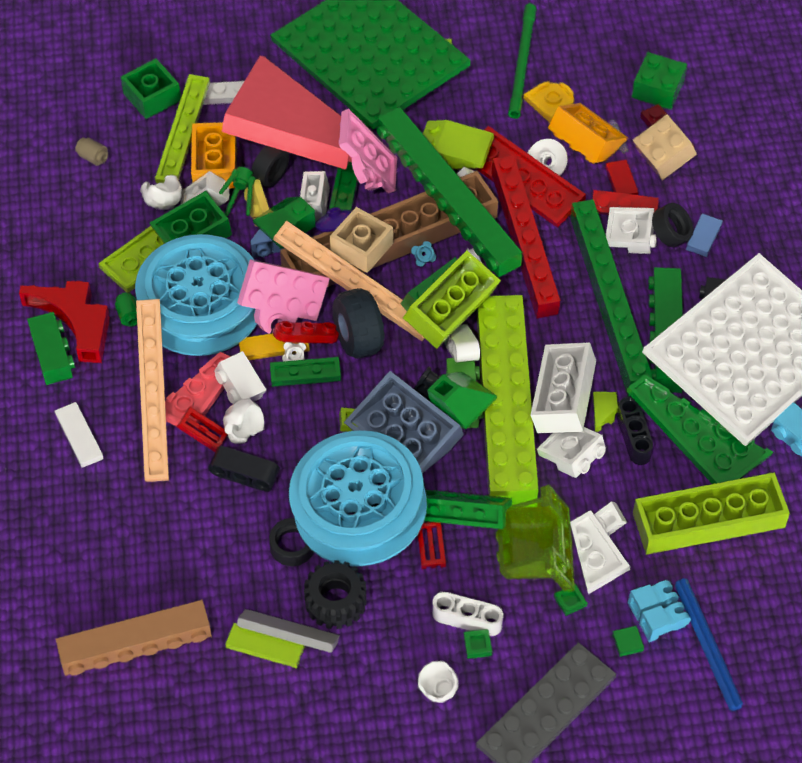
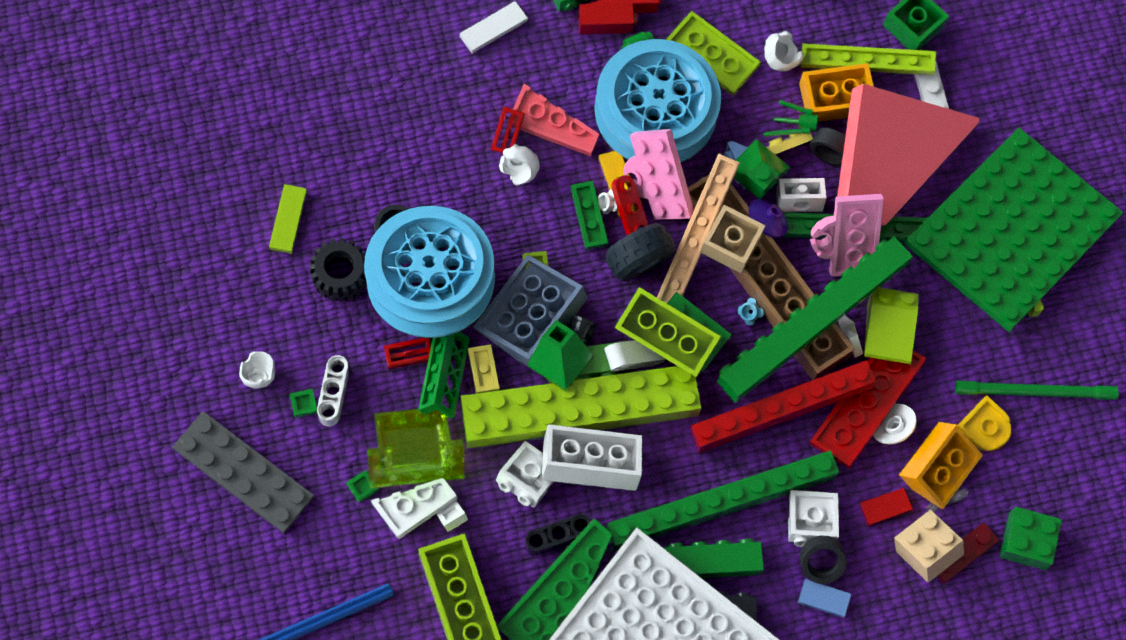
camera: 75 degrees right, 15 degrees up
(133, 638) = (282, 107): medium nougat brick -> none
(152, 390) = (537, 76): light nougat tile -> none
(193, 217) = (745, 85): green slope -> none
(209, 183) = (792, 90): white slope -> none
(239, 379) = (563, 154): white brick -> none
(244, 468) = (470, 174): black beam -> none
(288, 630) = (301, 235): light grey tile -> none
(458, 477) = (483, 369): none -> light yellow plate
(604, 200) = (849, 510): red plate -> none
(605, 408) = (583, 503): lime slope -> none
(628, 641) = (321, 542): green tile -> none
(658, 609) = (343, 566): medium azure legs -> none

